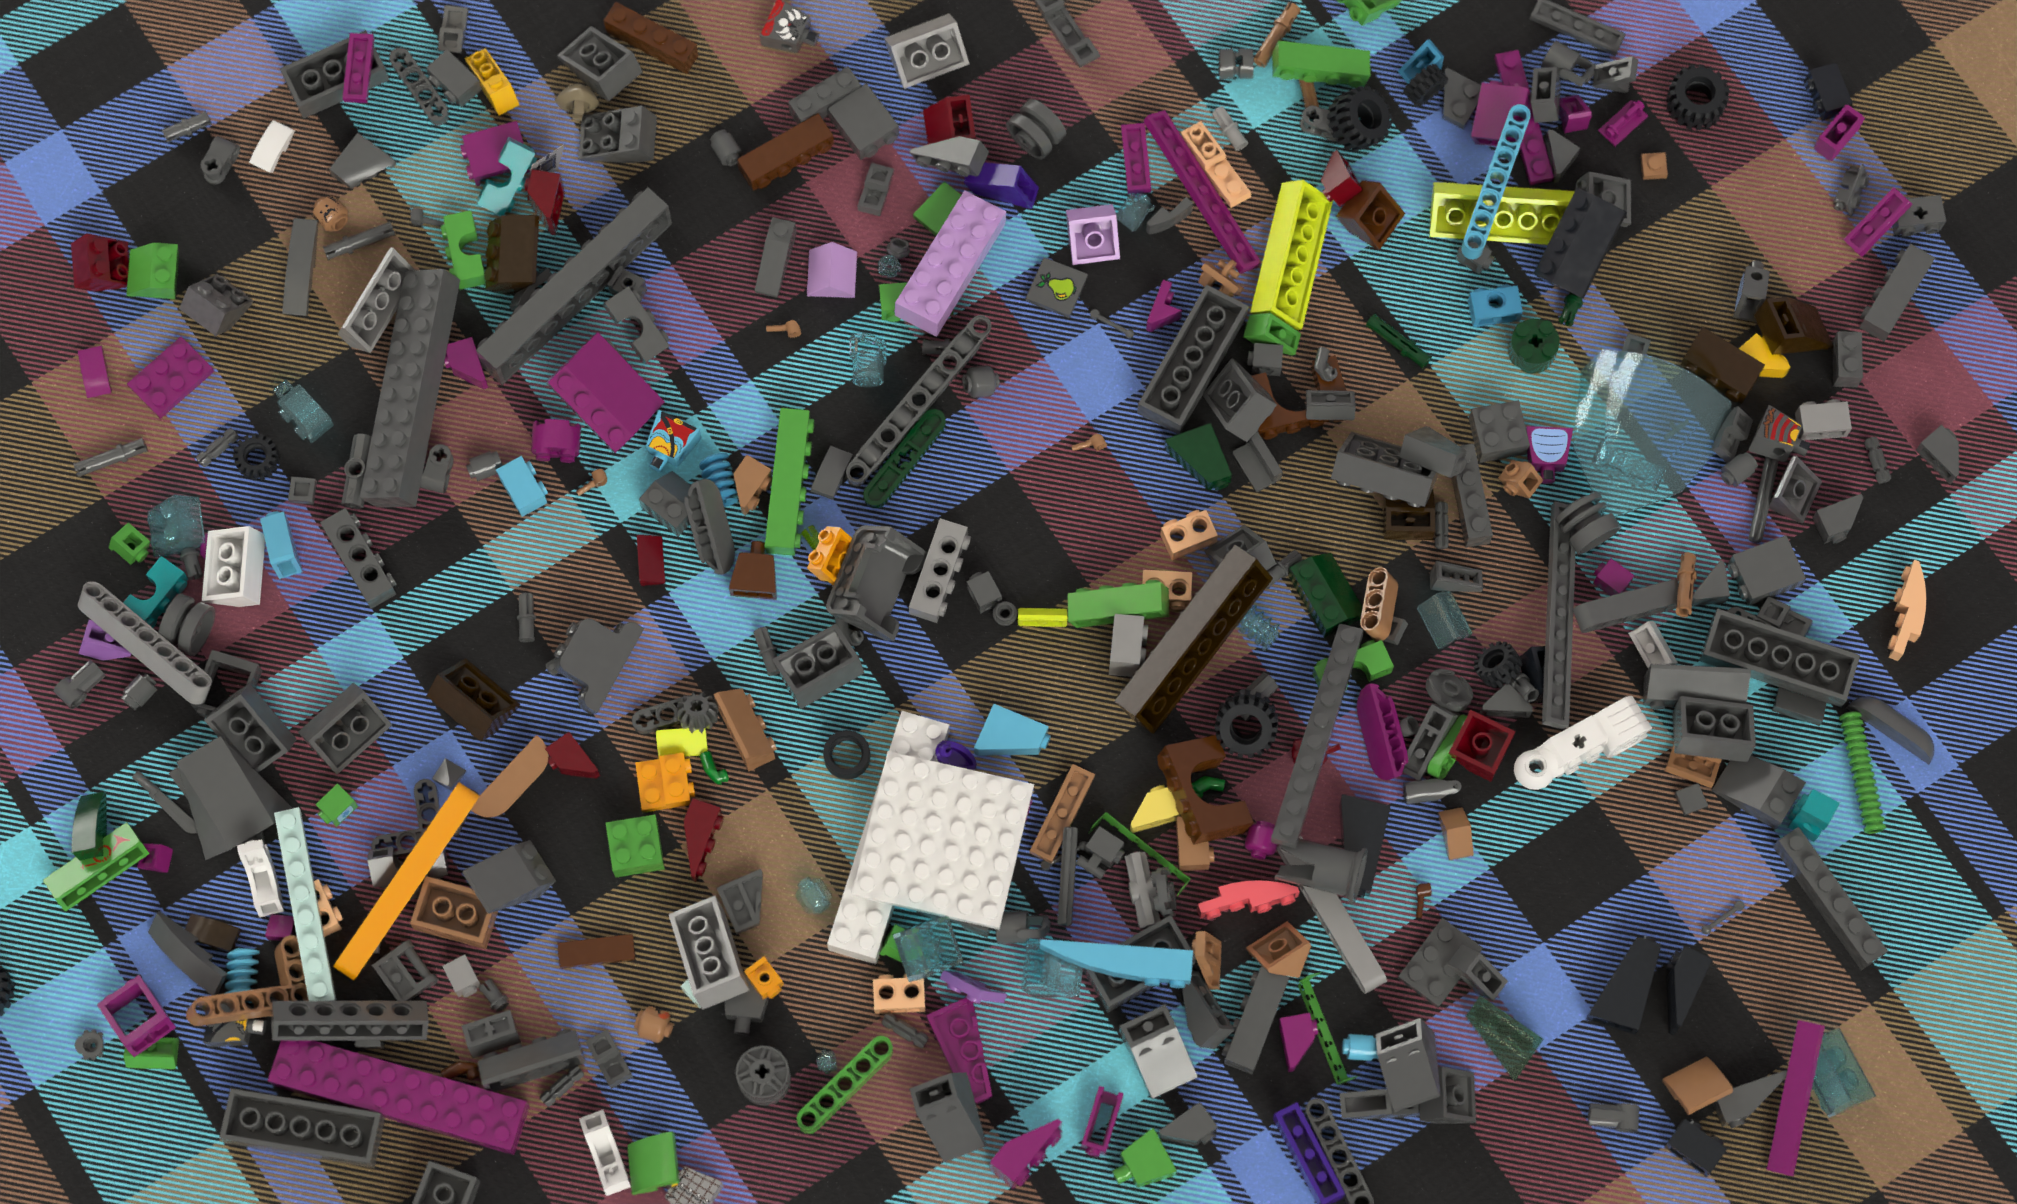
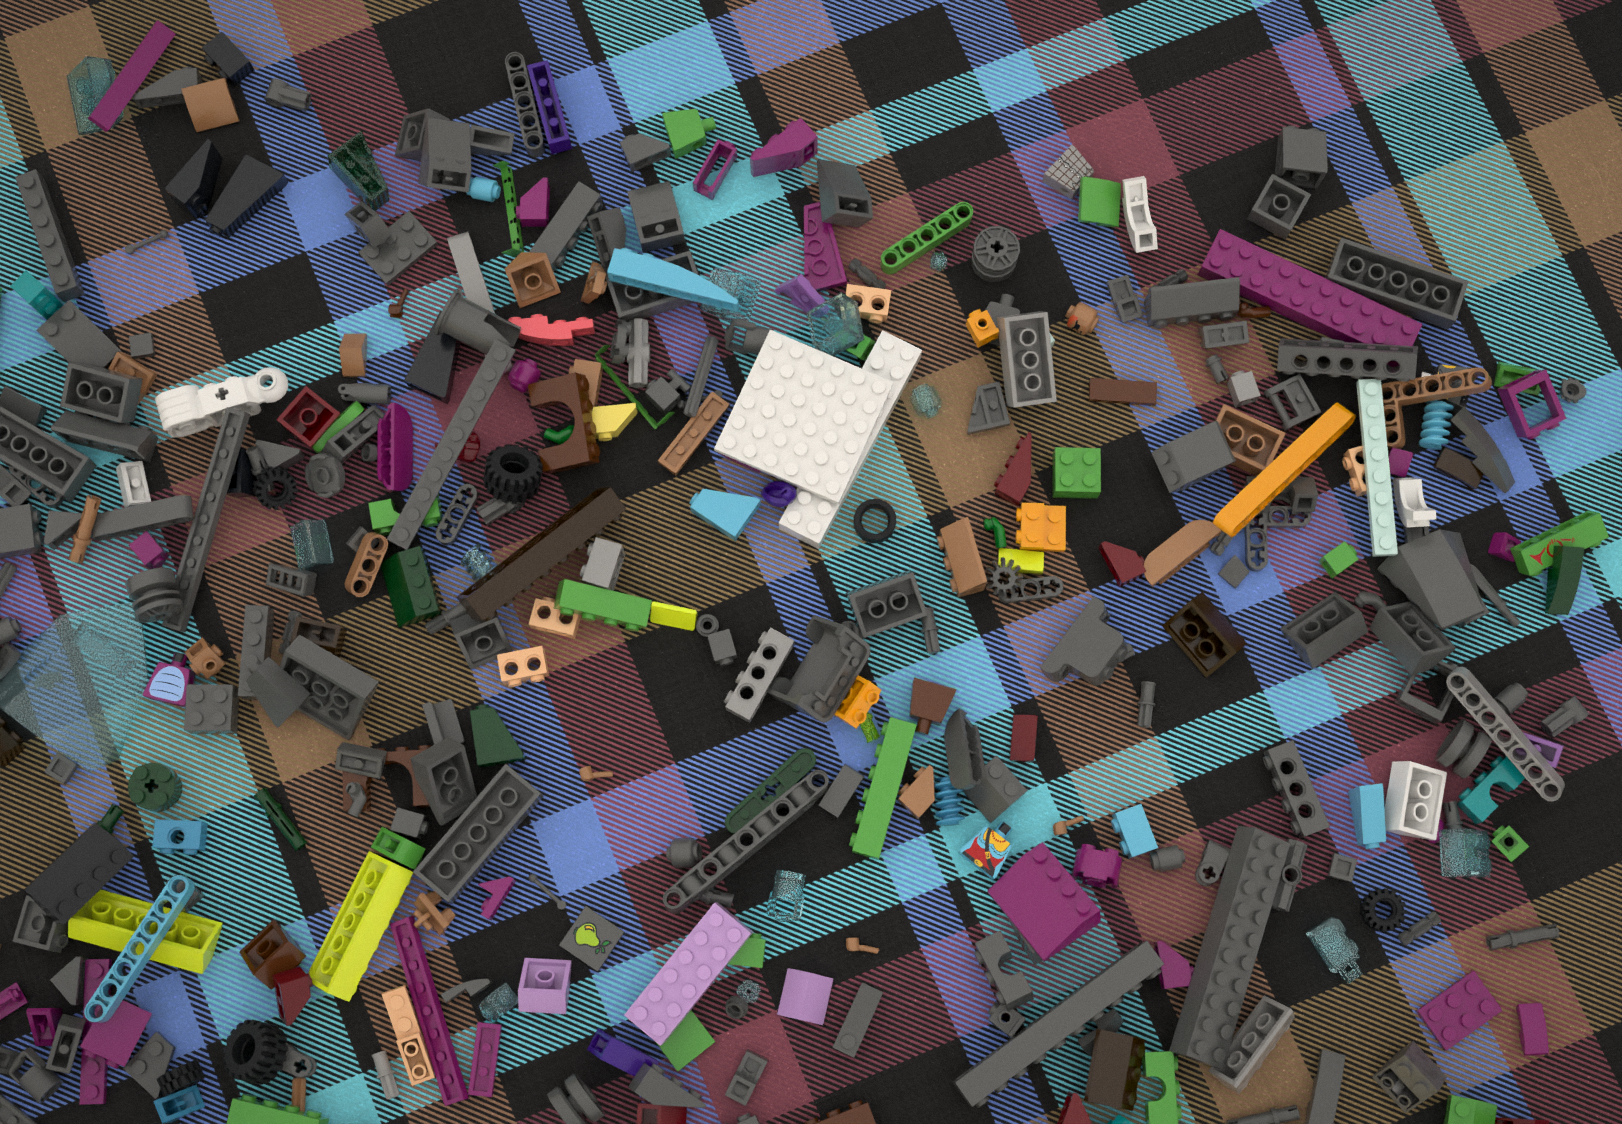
camera: 170 degrees left, 5 degrees up
(296, 772) = (1370, 599): none -> dark grey arm
(1293, 671) = (444, 526): none -> dark grey beam

